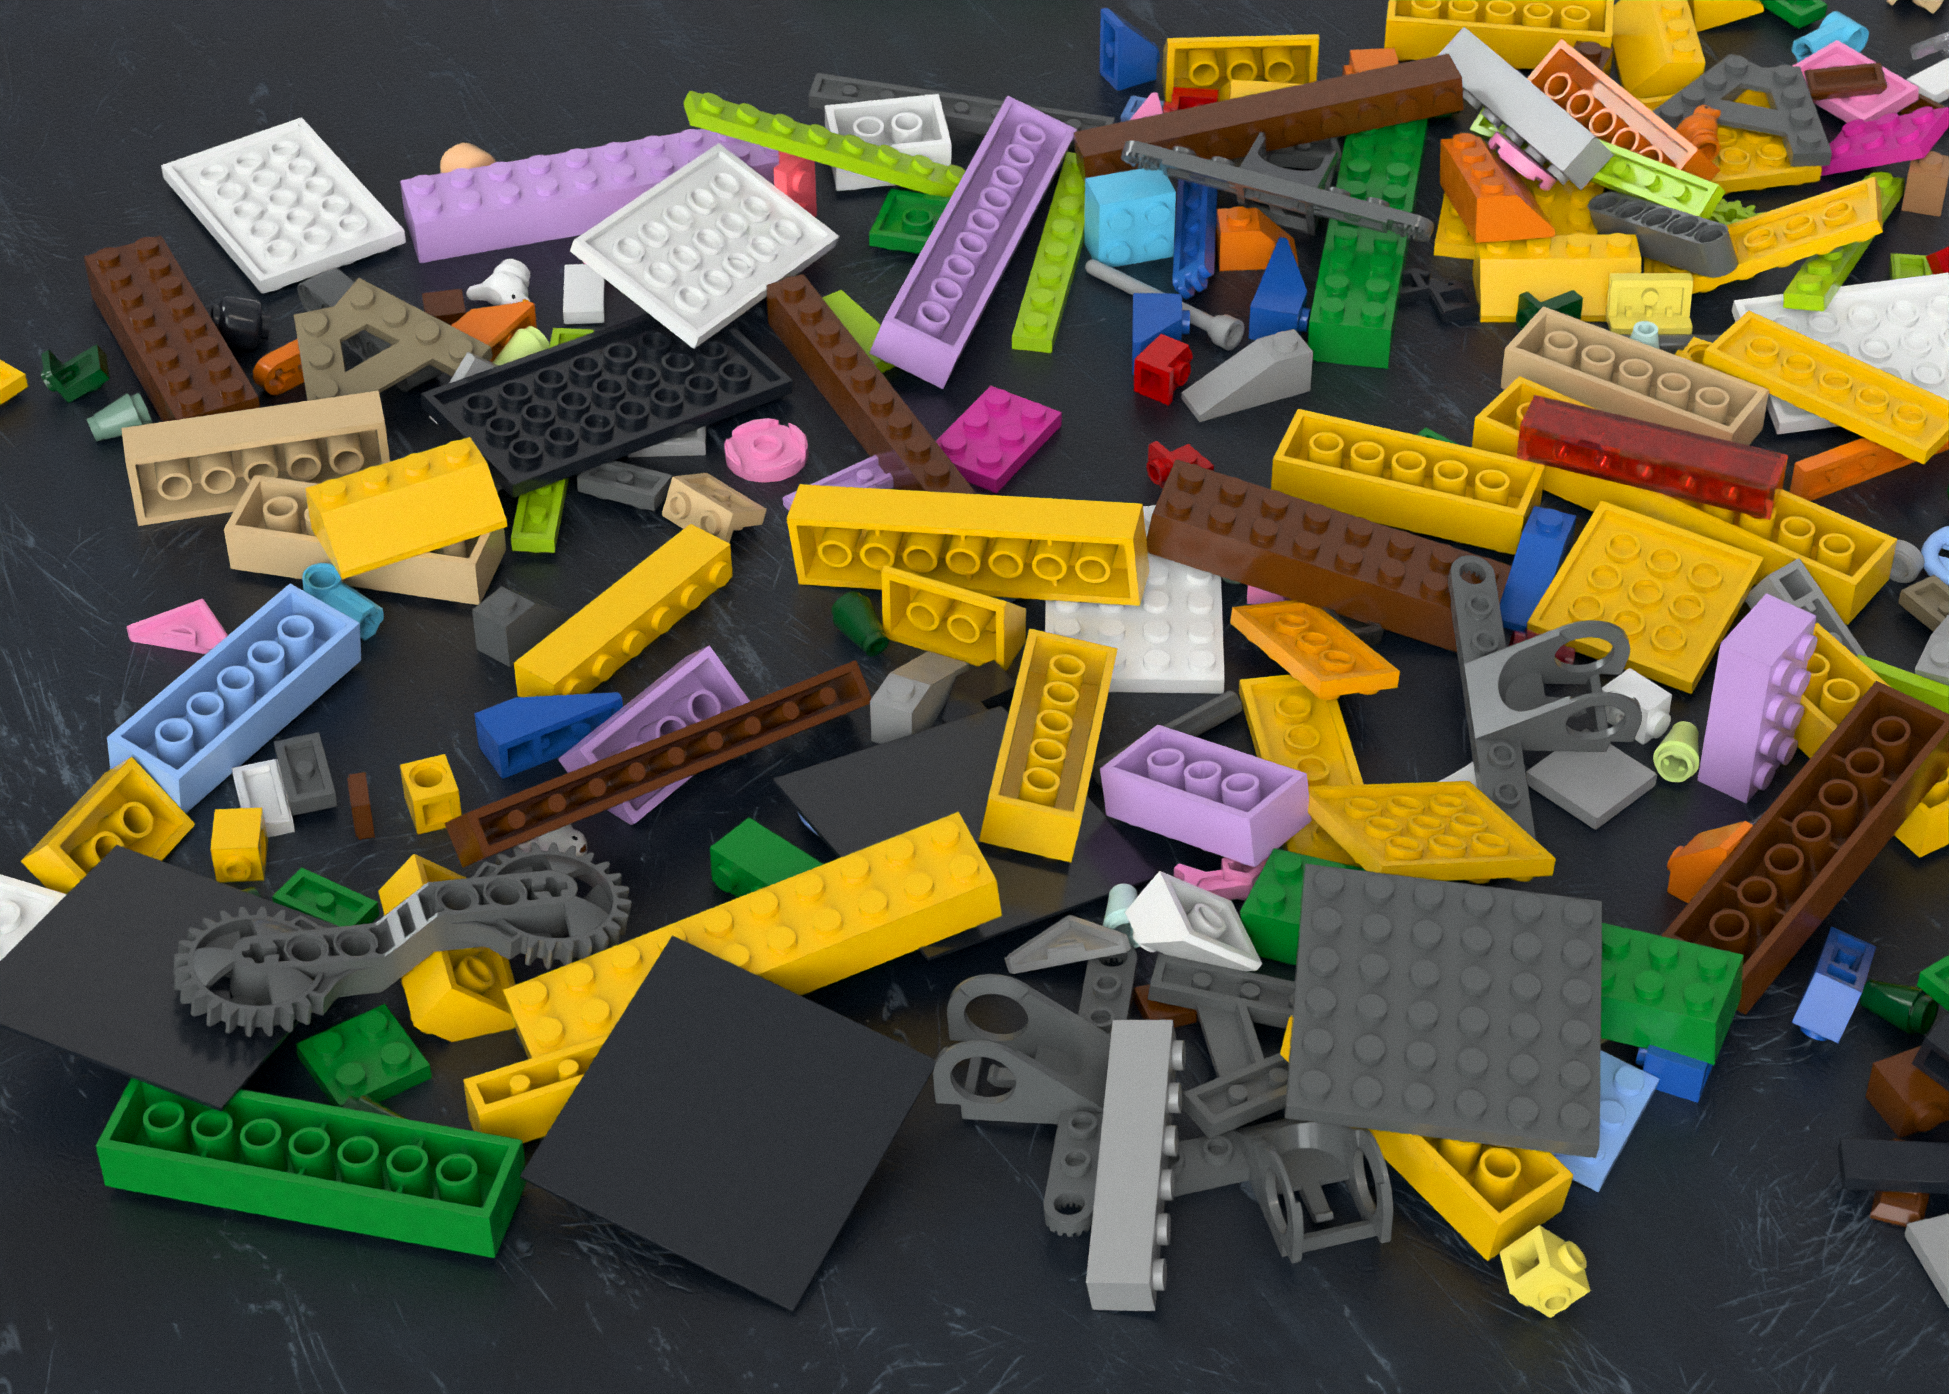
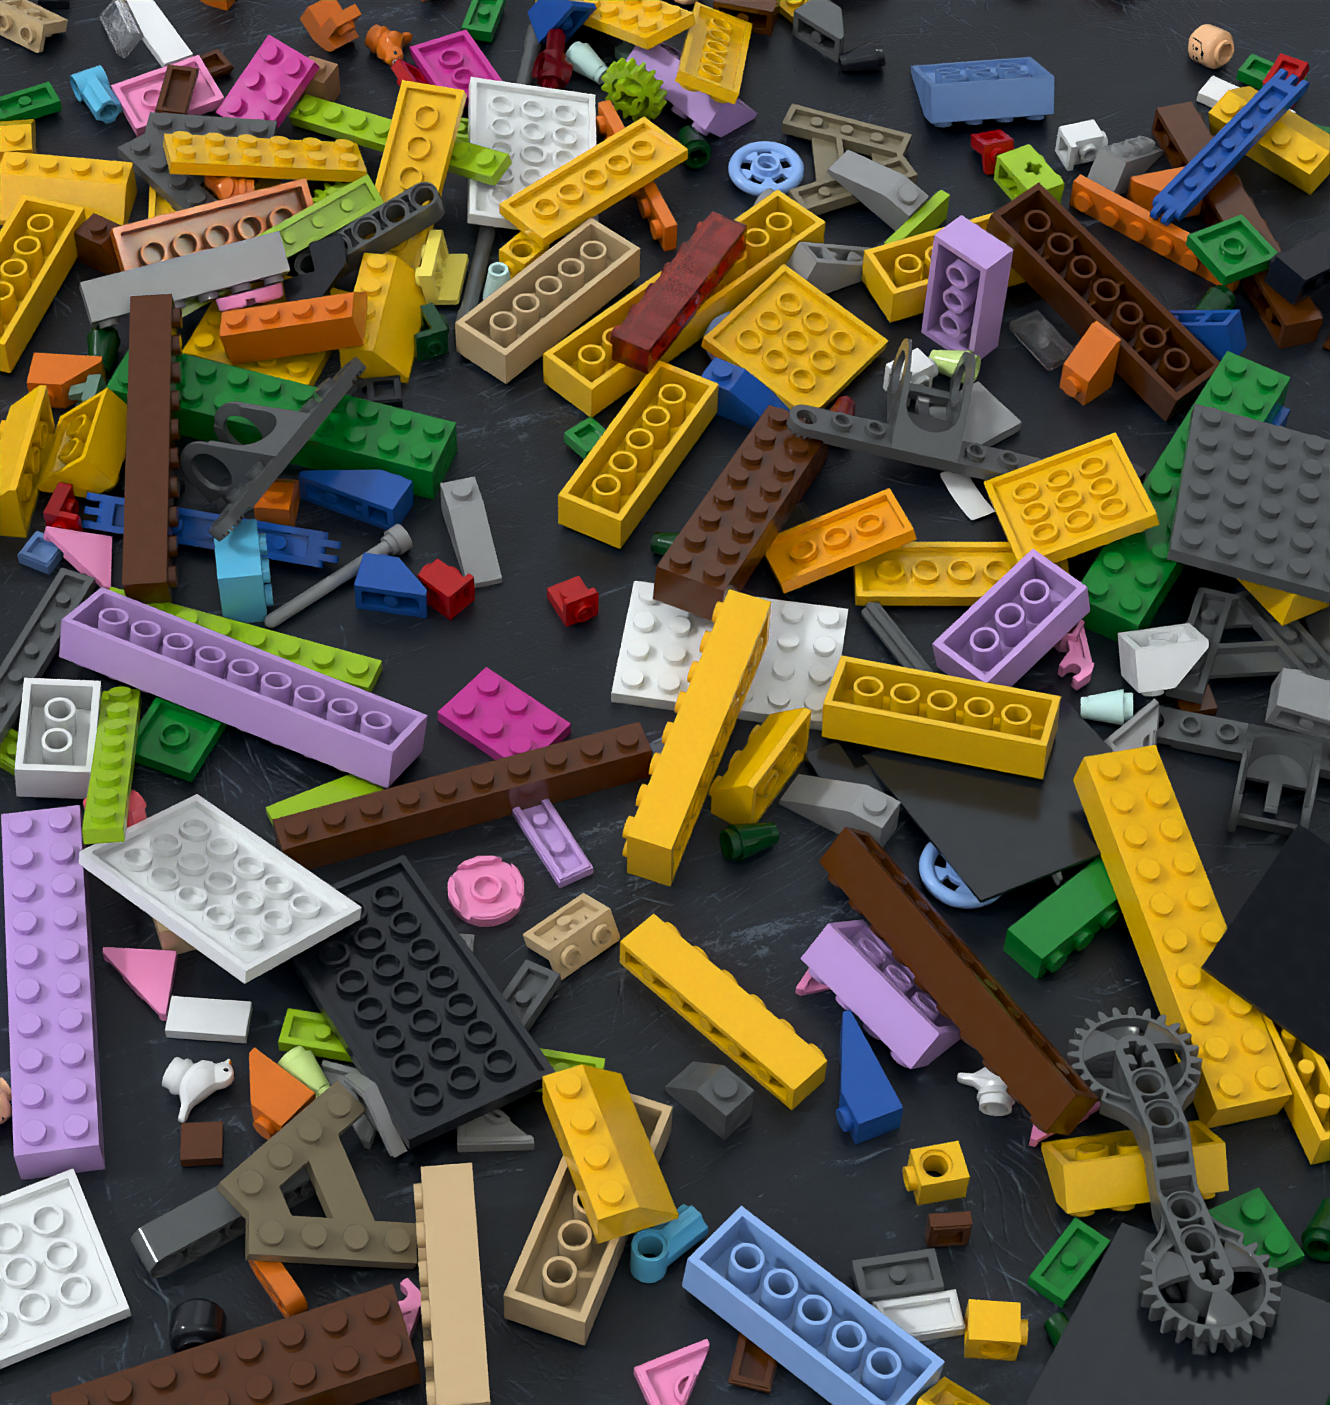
camera: 85 degrees left, 10 degrees up
(1597, 208) = (329, 265): none -> black tile
(1746, 132) = (263, 157): none -> yellow plate

